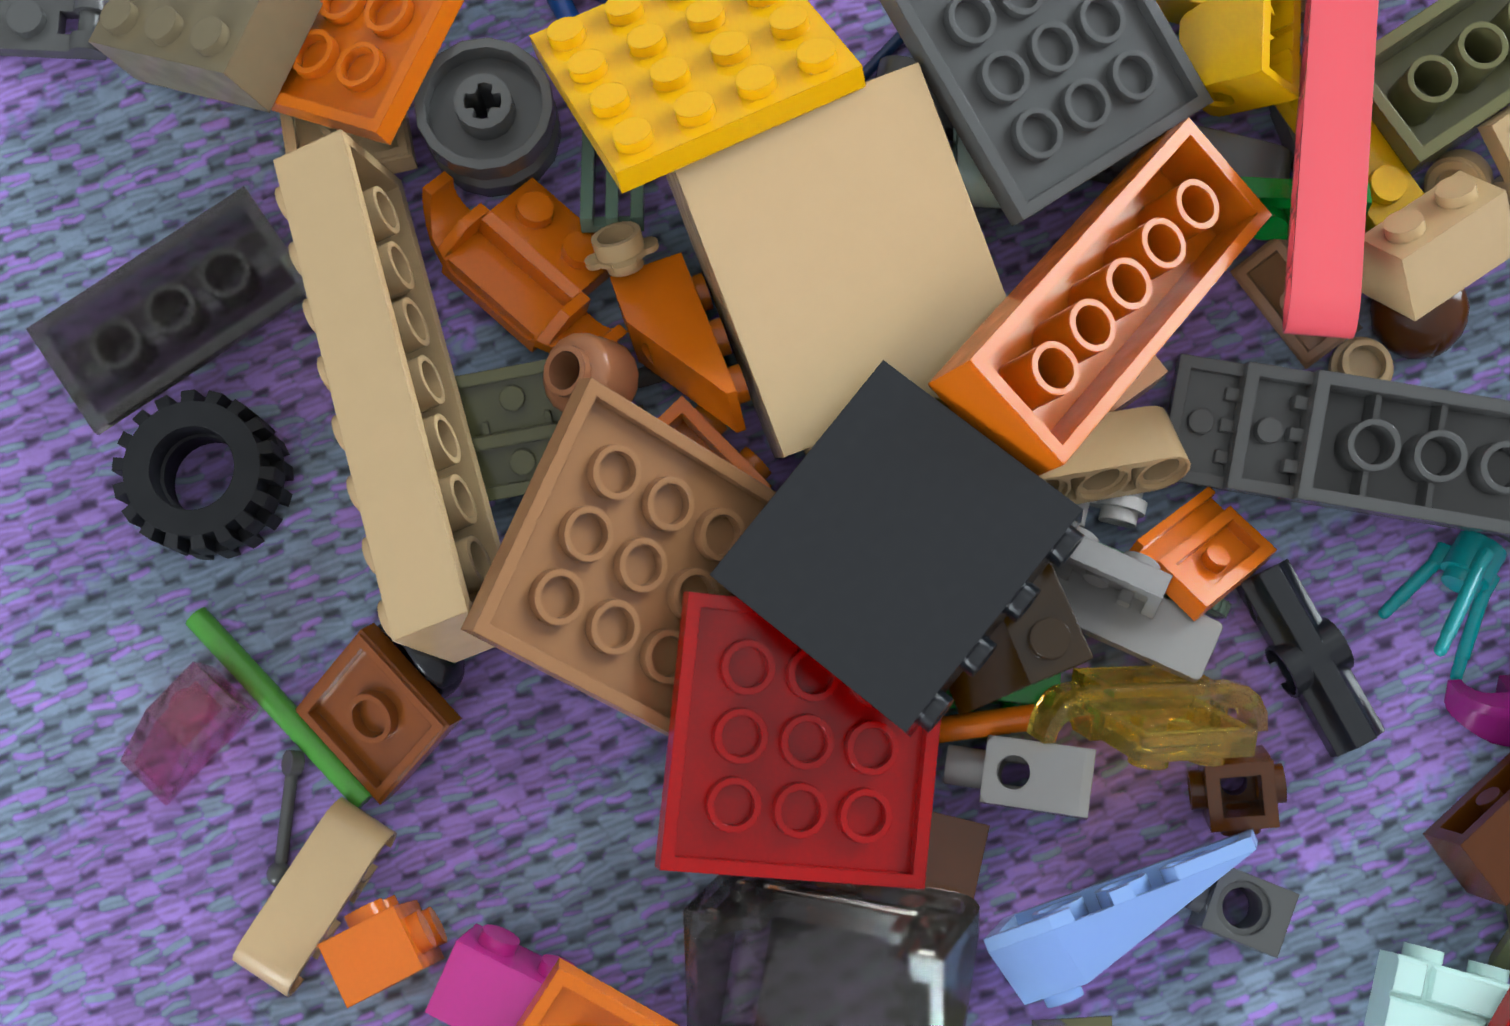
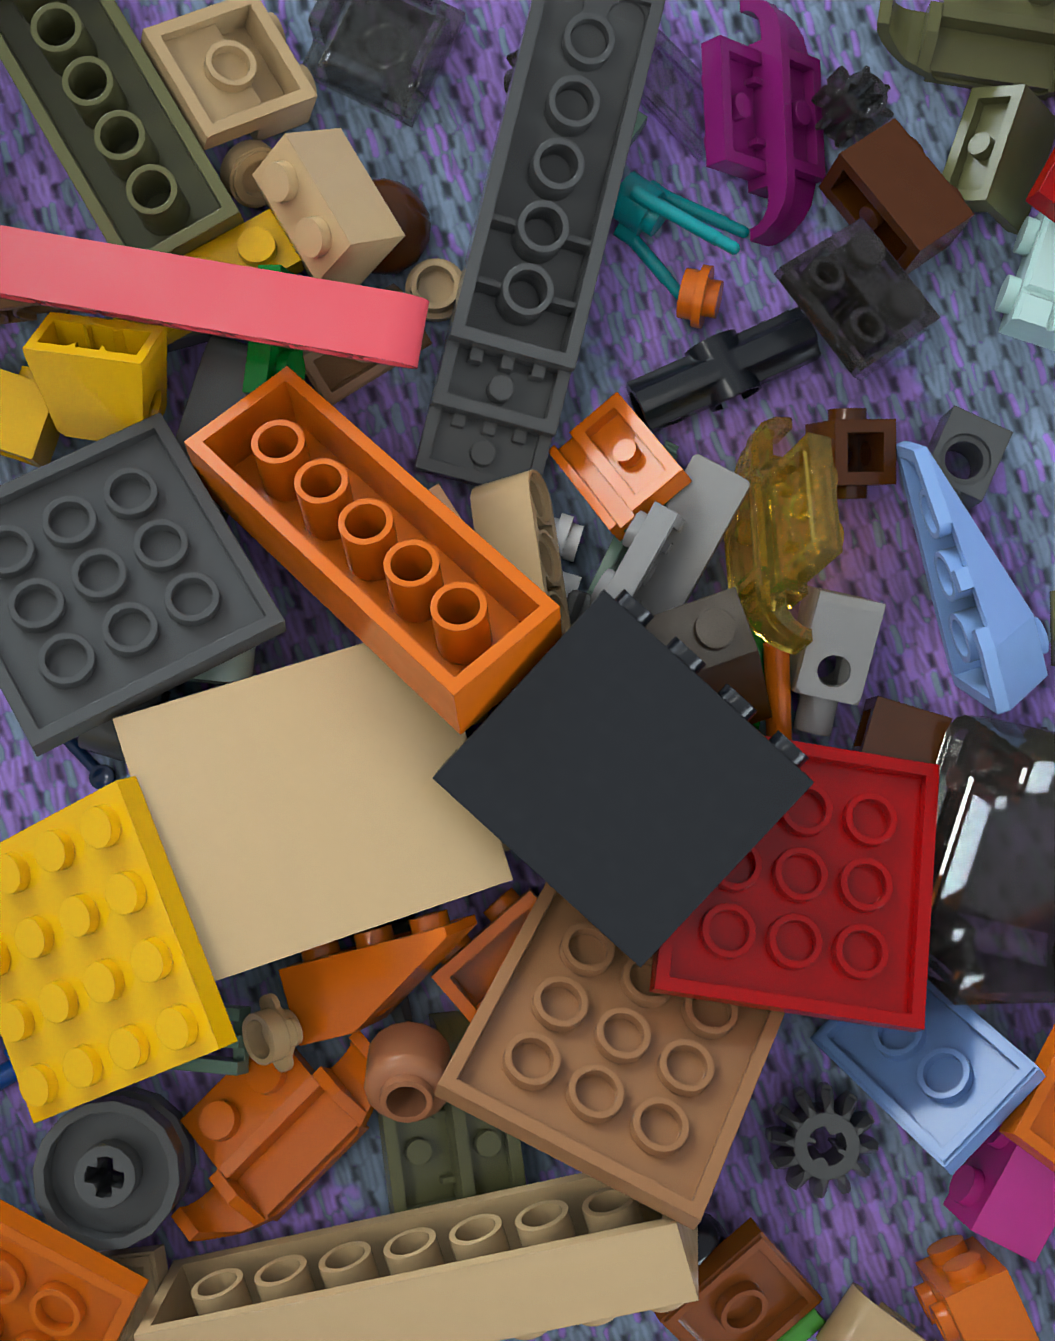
camera: 90 degrees left, 5 degrees up
(516, 785) = (838, 1119): none -> dark grey gear
(608, 899) = (938, 1083): none -> medium blue tile
(1384, 629) = (699, 295): none -> orange plate
(1399, 784) = (858, 298): none -> clear smoke slope

